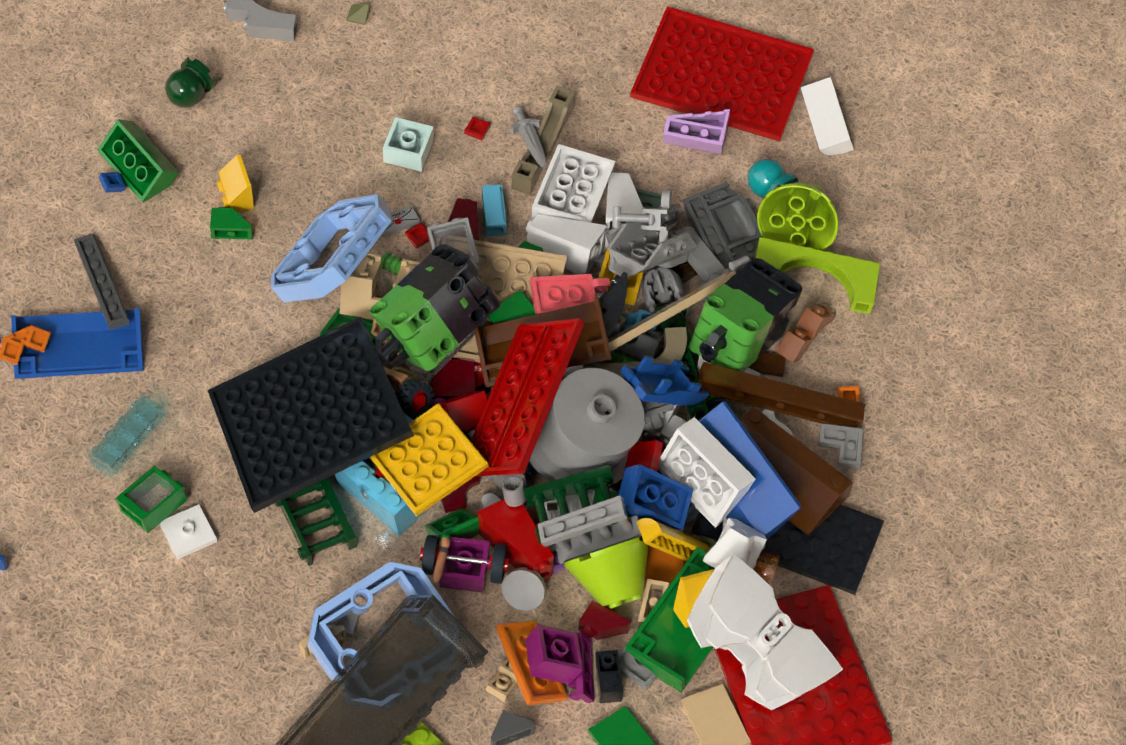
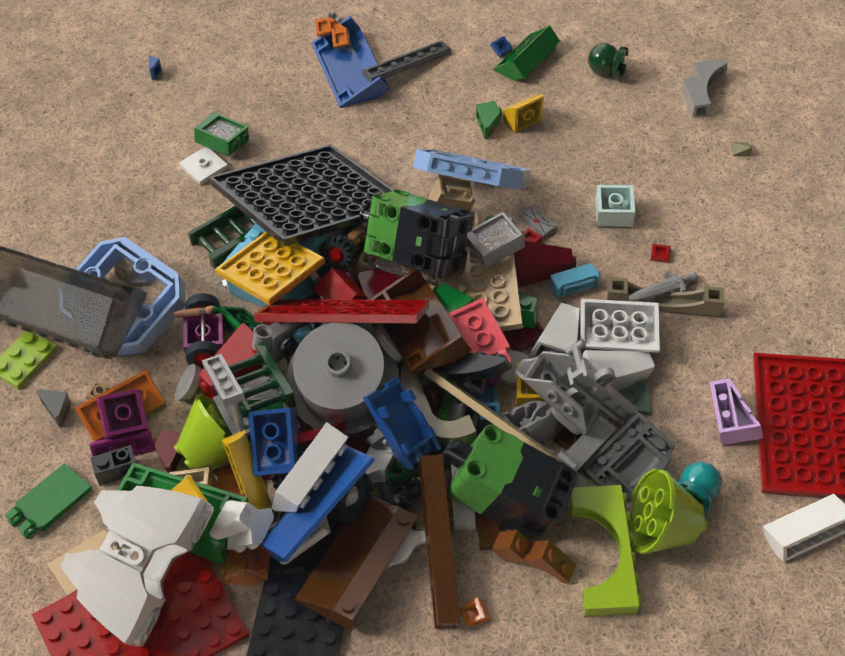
camera: 80 degrees right, 5 degrees down
(126, 436) = (275, 109): clear light blue brick -> none
(847, 440) = (417, 621): light grey plate -> none

